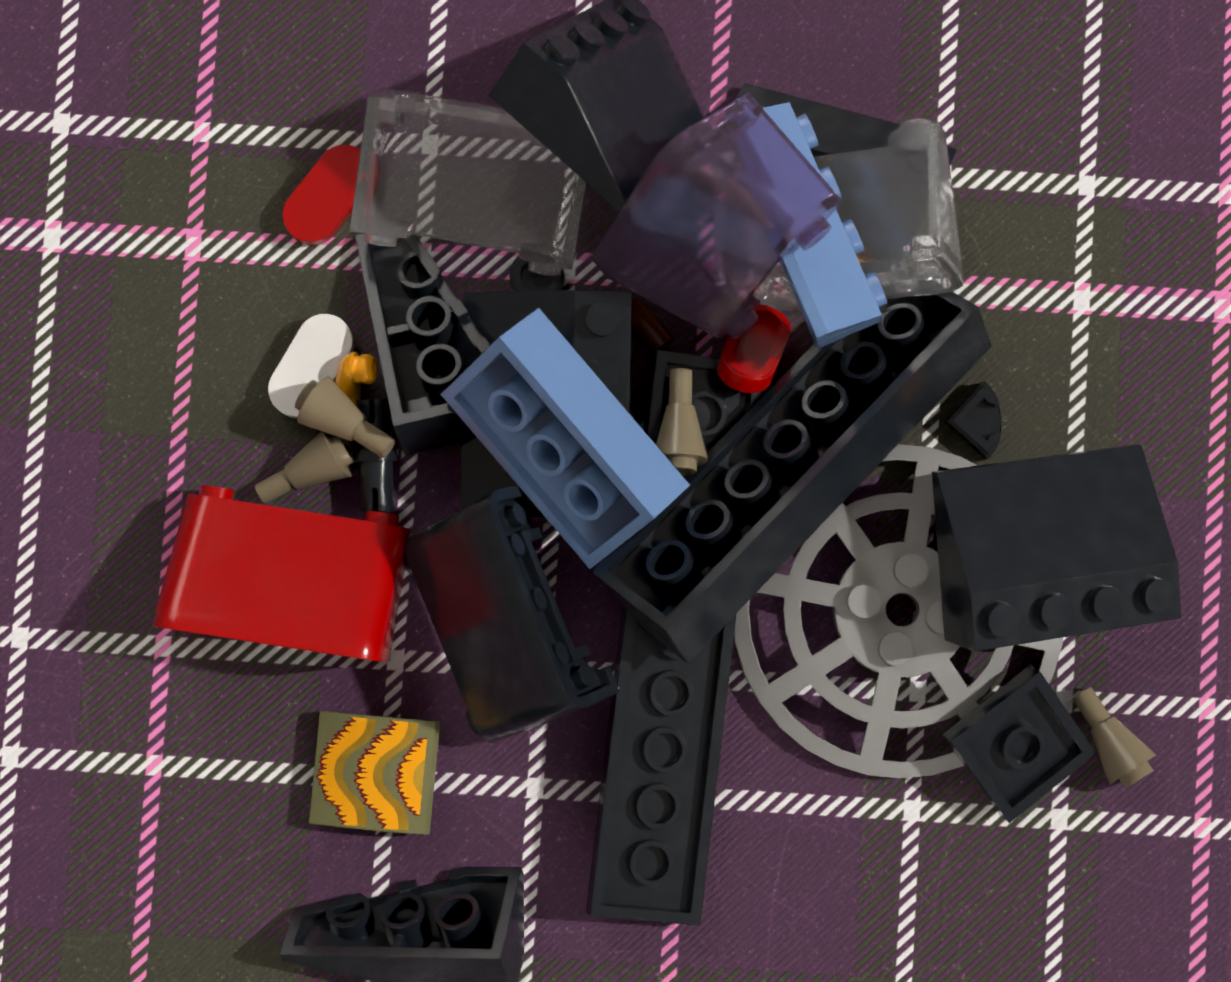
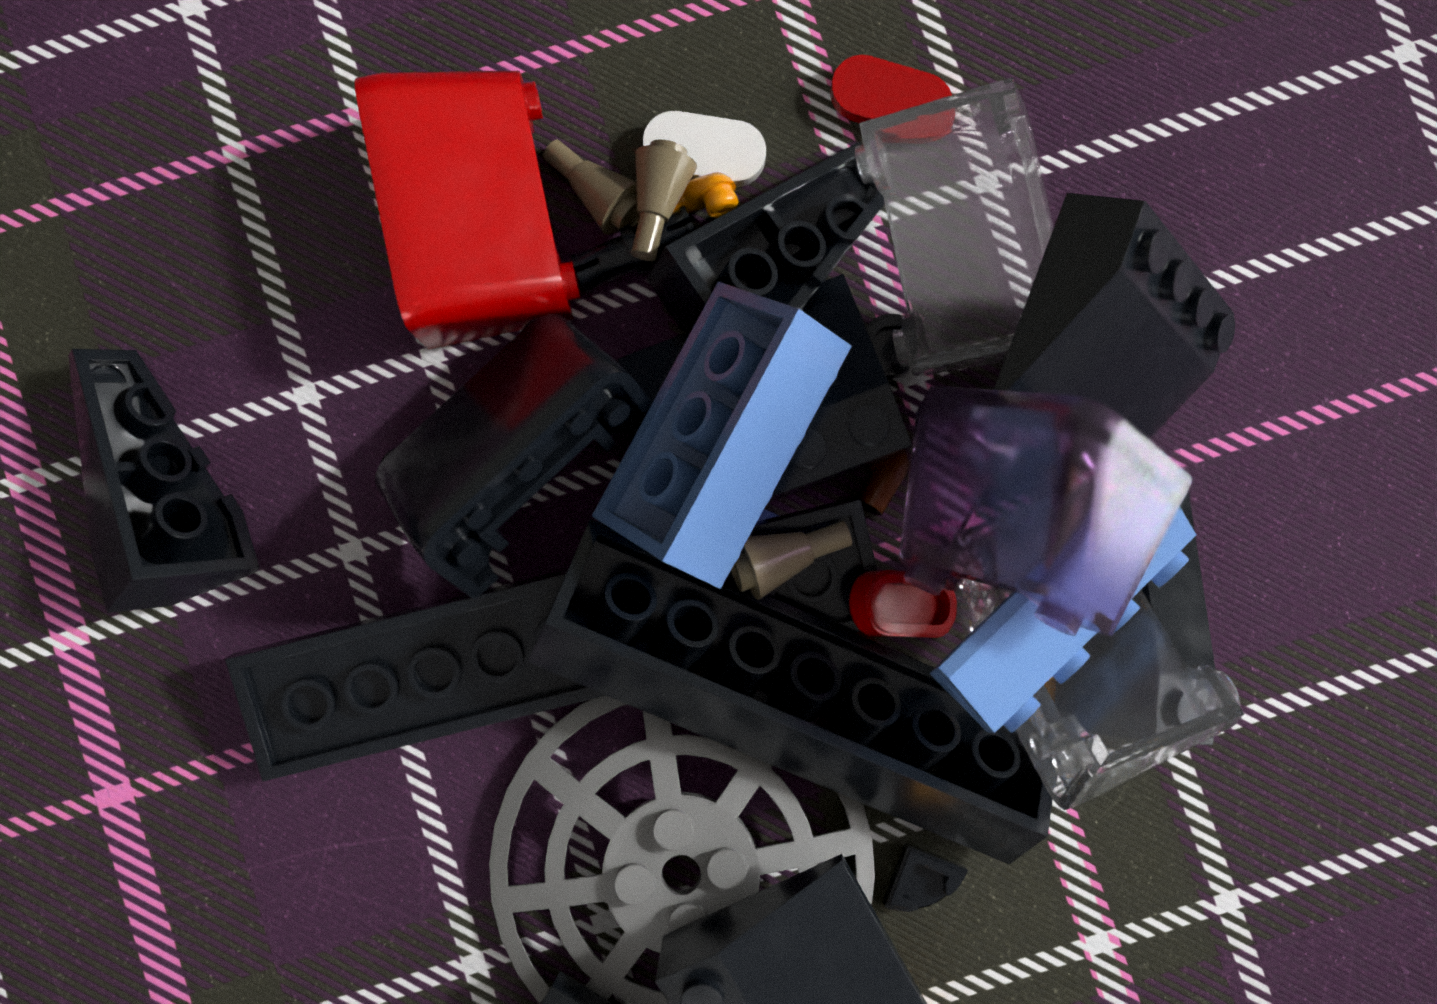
camera: 75 degrees right, 0 degrees up
(374, 772) = (302, 377): slope -> none

